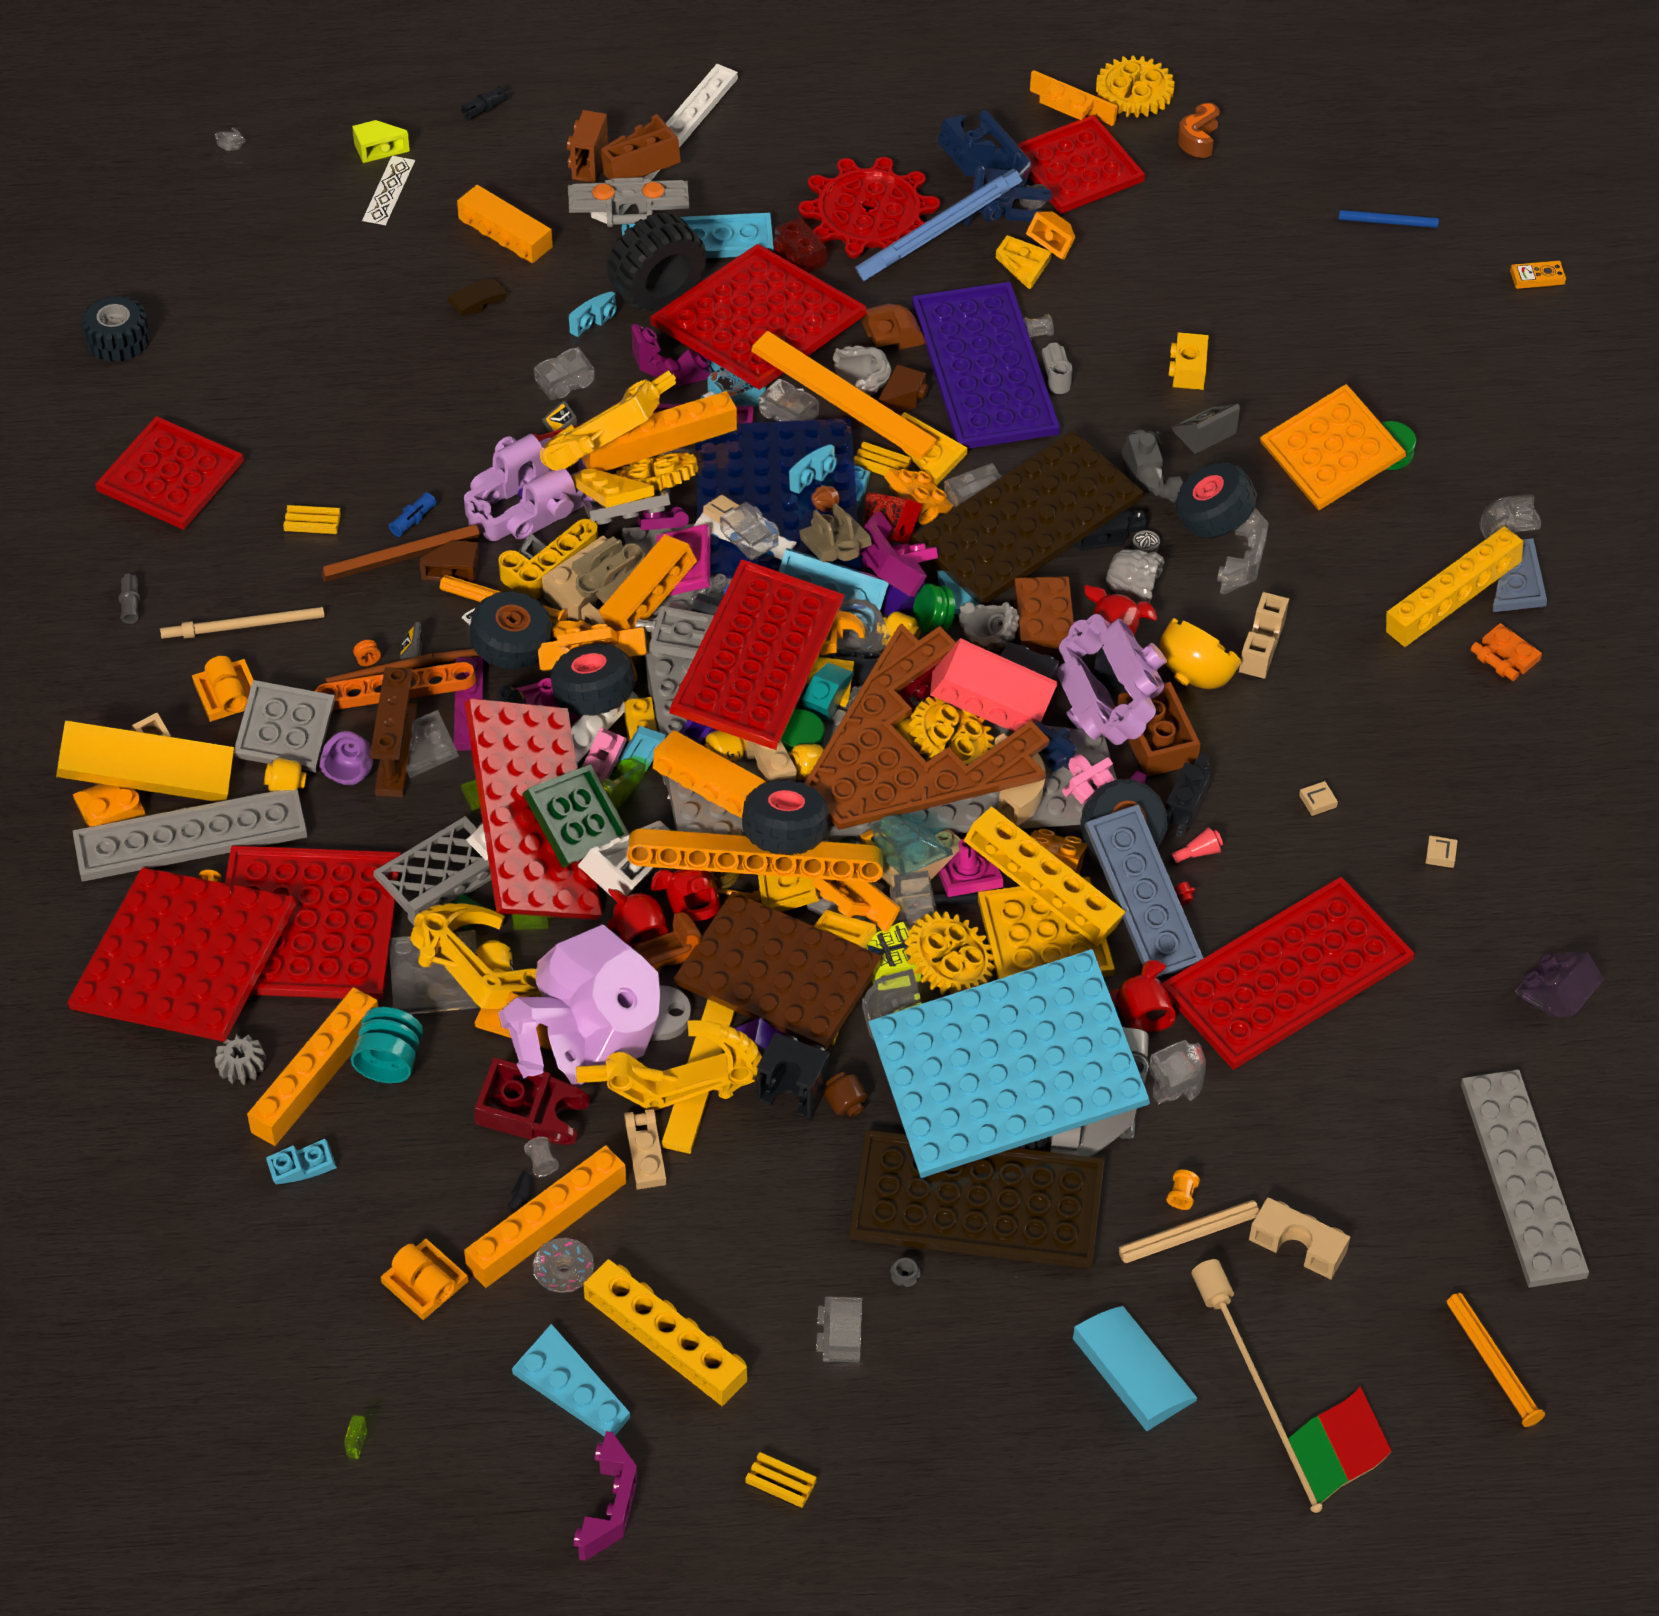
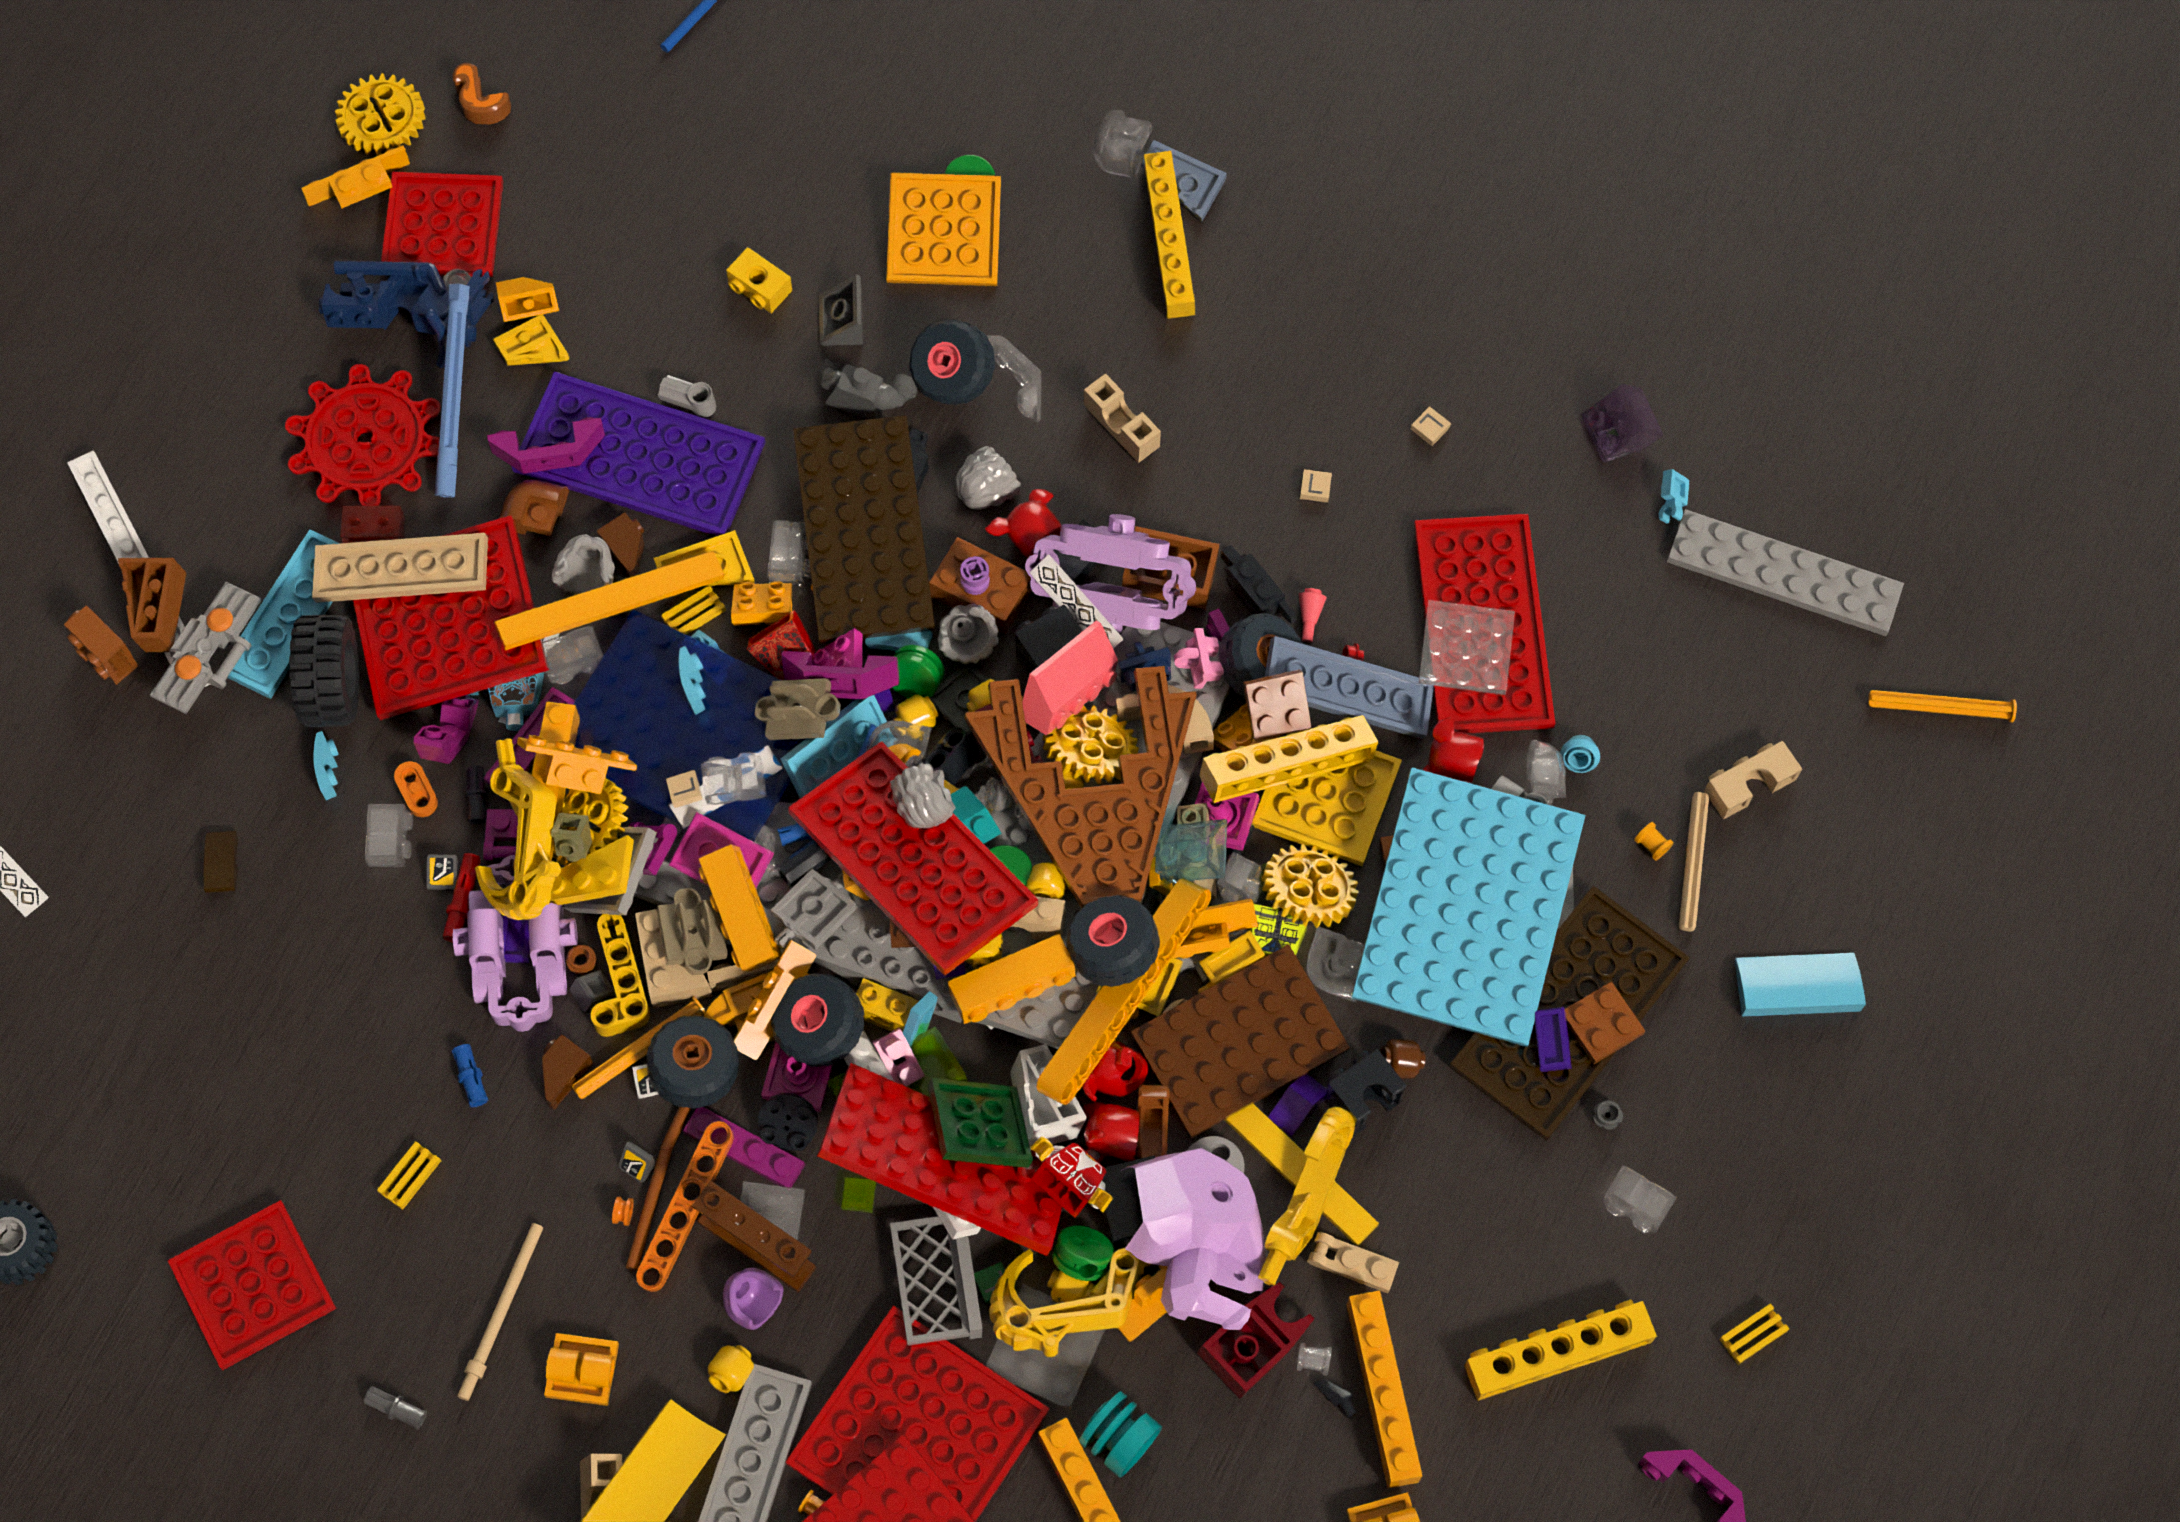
camera: 60 degrees left, 15 degrees up
(284, 725) = (669, 1337): light grey plate -> none
(397, 553) = (517, 1114): dark orange tile -> none
(504, 224) = (140, 783): light orange brick -> none
(521, 946) = (1082, 1253): none -> green head
(549, 531) = (581, 951): none -> dark orange plate
(563, 1254) = (1446, 1386): clear dish -> none
(568, 1381) = (1558, 1461): medium azure wing -> none
(577, 898) = (1071, 1176): none -> red torso
(610, 376) = (417, 790): none -> orange plate
(628, 455) = (571, 843): none -> olive brick
(685, 429) = (575, 767): none -> light orange bracket
(774, 267) = (400, 567): none -> tan plate
(801, 628) = (922, 796): none -> light grey hair
(824, 498) = (738, 690): dark orange plate -> none
(937, 1188) = (1552, 1039): none -> dark purple tile
(964, 320) = (587, 434): none -> magenta slope
(981, 1221) = (1603, 1023): none -> dark orange plate
(1038, 594) = (977, 581): none -> medium lavender wheel
(1039, 326) = (626, 378): clear bush -> none
(1067, 675) = (1066, 593): none -> white sticker
(1080, 838) = (1277, 705): none -> plate
(1146, 541) = (944, 448): tile -> none
(1197, 656) = (1115, 488): yellow cylinder -> none
(1220, 1094) = (1580, 754): none -> medium azure cone
(1250, 961) = (1466, 647): none -> clear plate
(1328, 1447) = (1952, 871): flag -> none
(1510, 648) = (1254, 234): orange plate -> none
(1528, 1053) = (1675, 492): none -> medium azure plate

